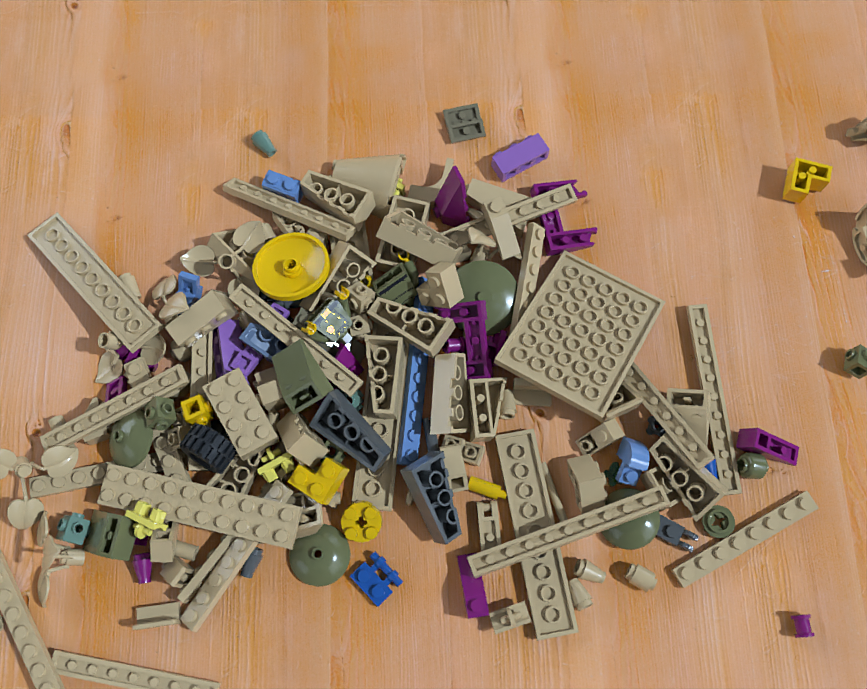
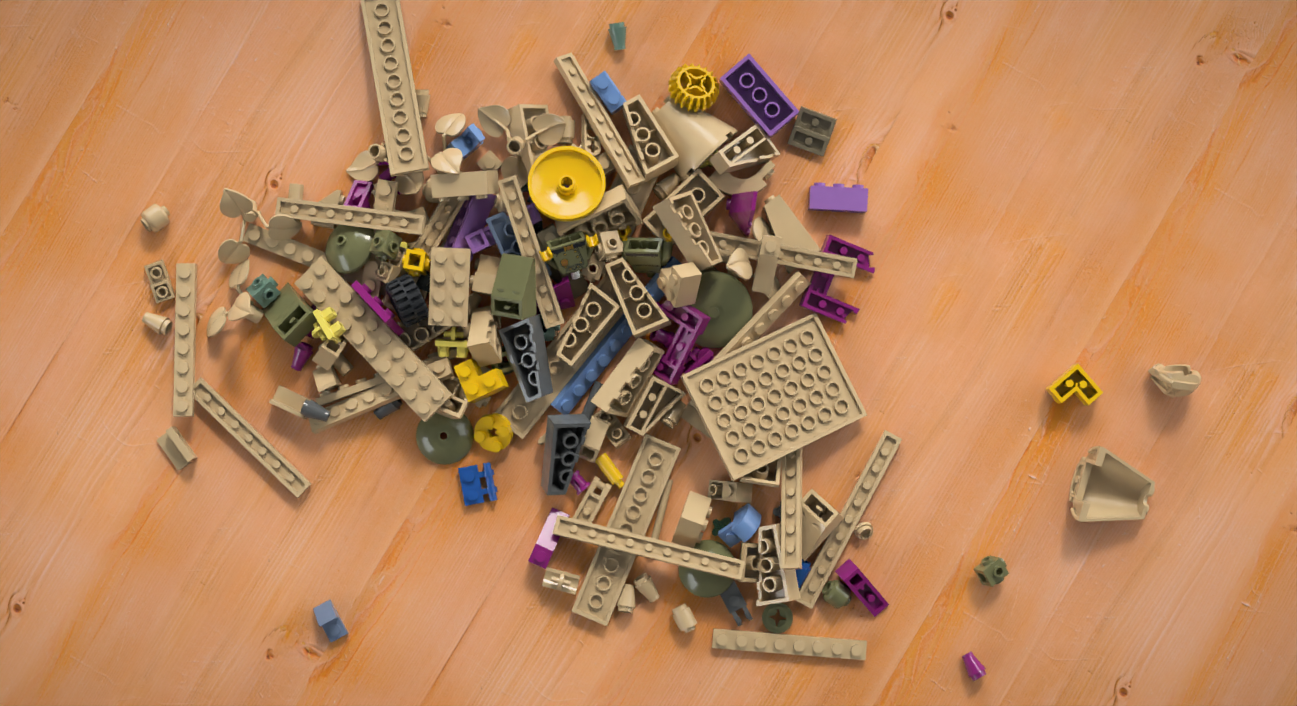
camera: 30 degrees right, 15 degrees up
(181, 608) = (314, 411): none -> dark grey cone
(182, 471) = (375, 303): none -> magenta wing
(349, 141) = (694, 82): none -> yellow gear
(374, 229) = (666, 186): none -> tan cone
(405, 119) = (759, 96): none -> medium lavender brick
(423, 162) = (745, 151): none -> tan wedge
(472, 515) = (578, 482): none -> magenta bush
(733, 398) = (863, 530): none -> tan plate

